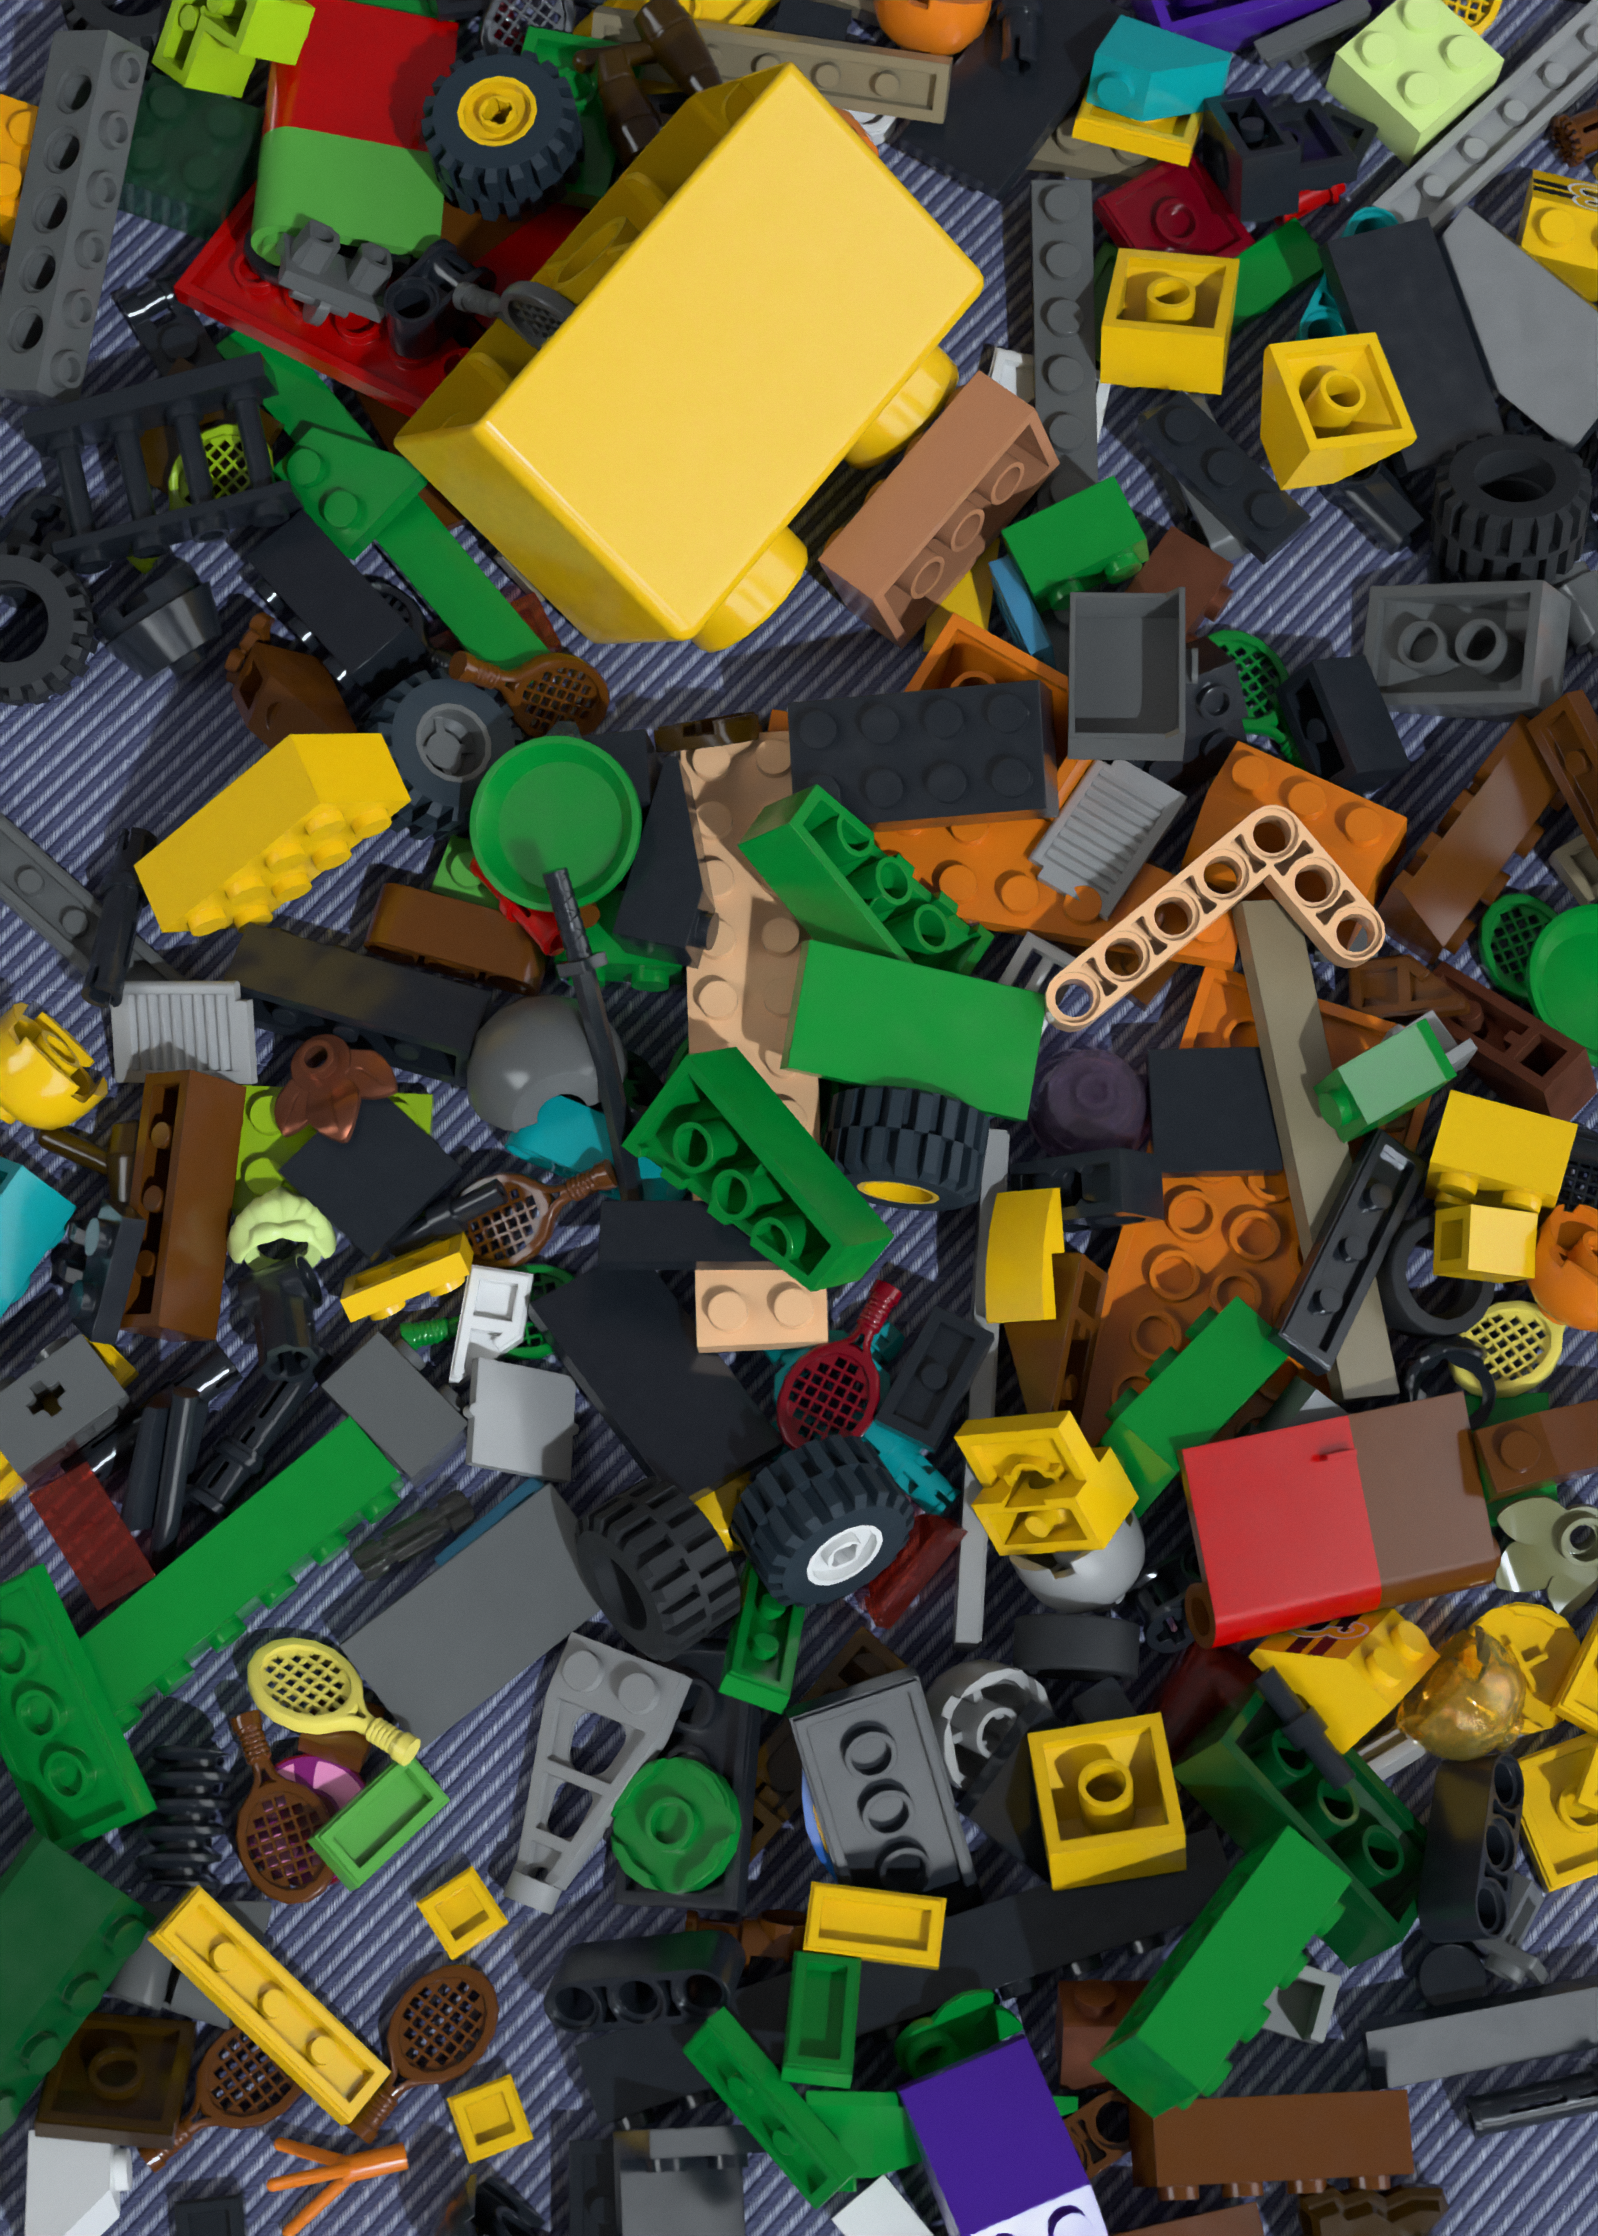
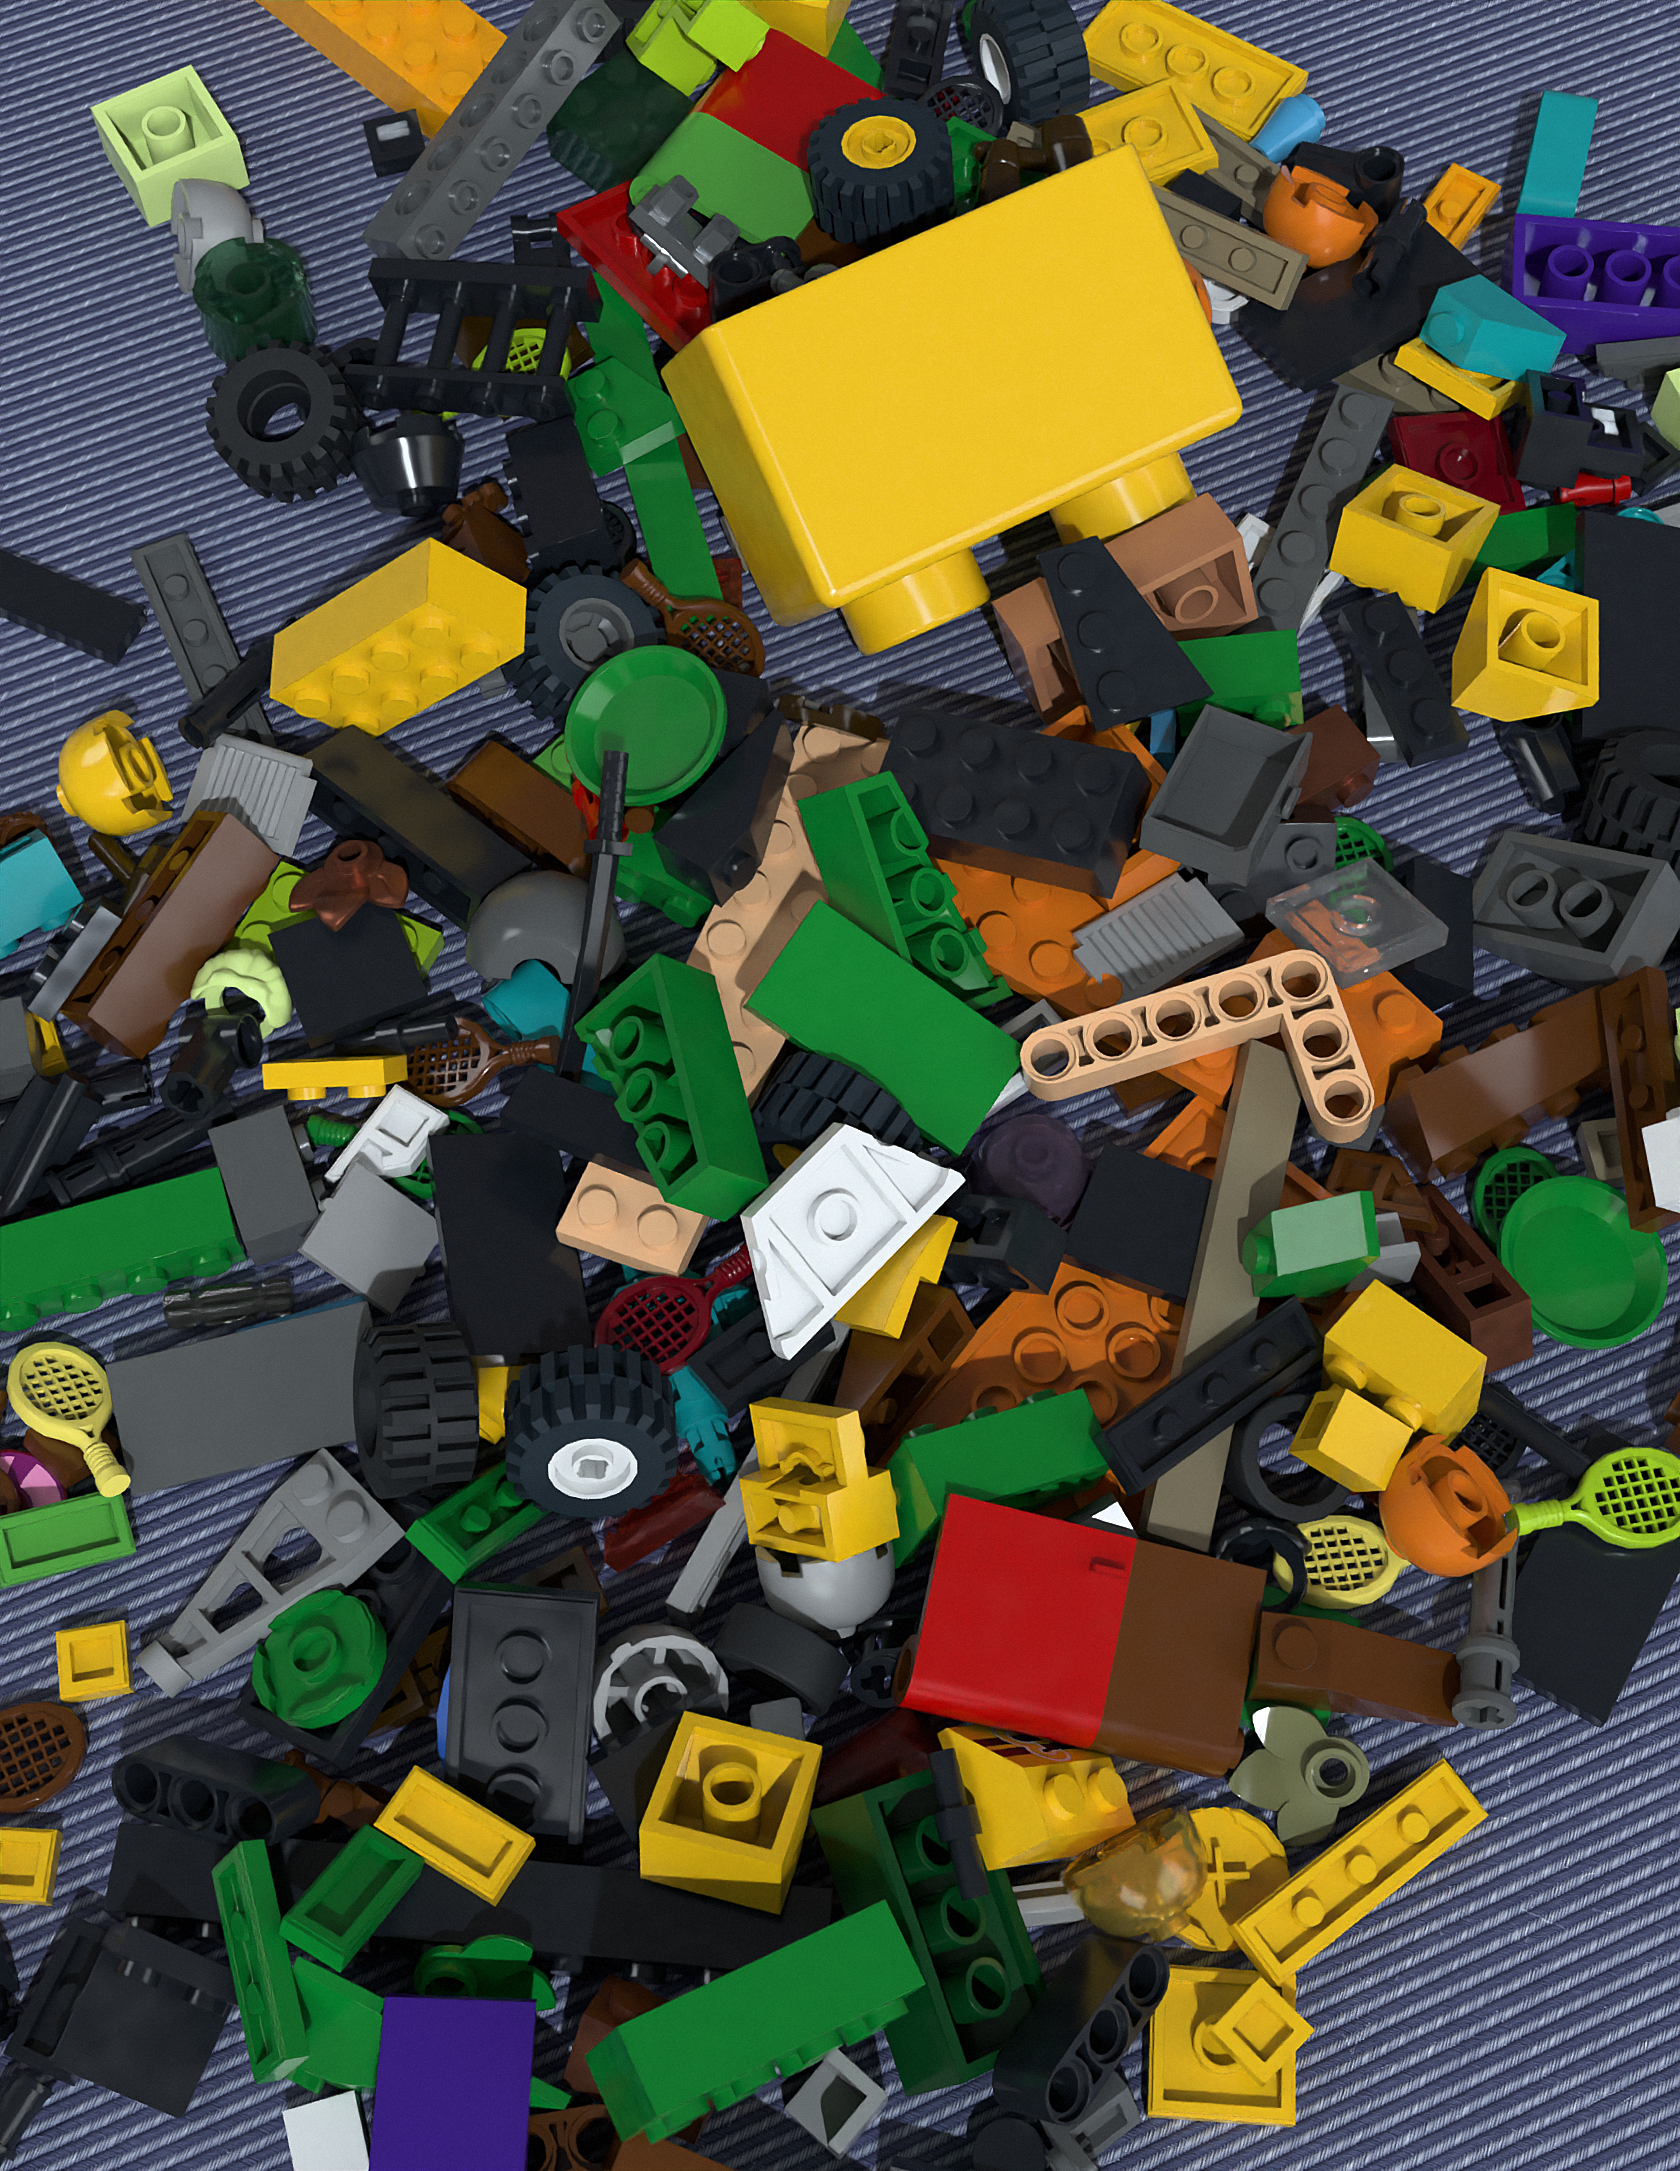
camera: 30 degrees right, 10 degrees down
(957, 560) = (1114, 640): none -> black wing
(961, 1245) = (834, 1226): none -> white wing
(1290, 750) = (1357, 921): none -> clear tile

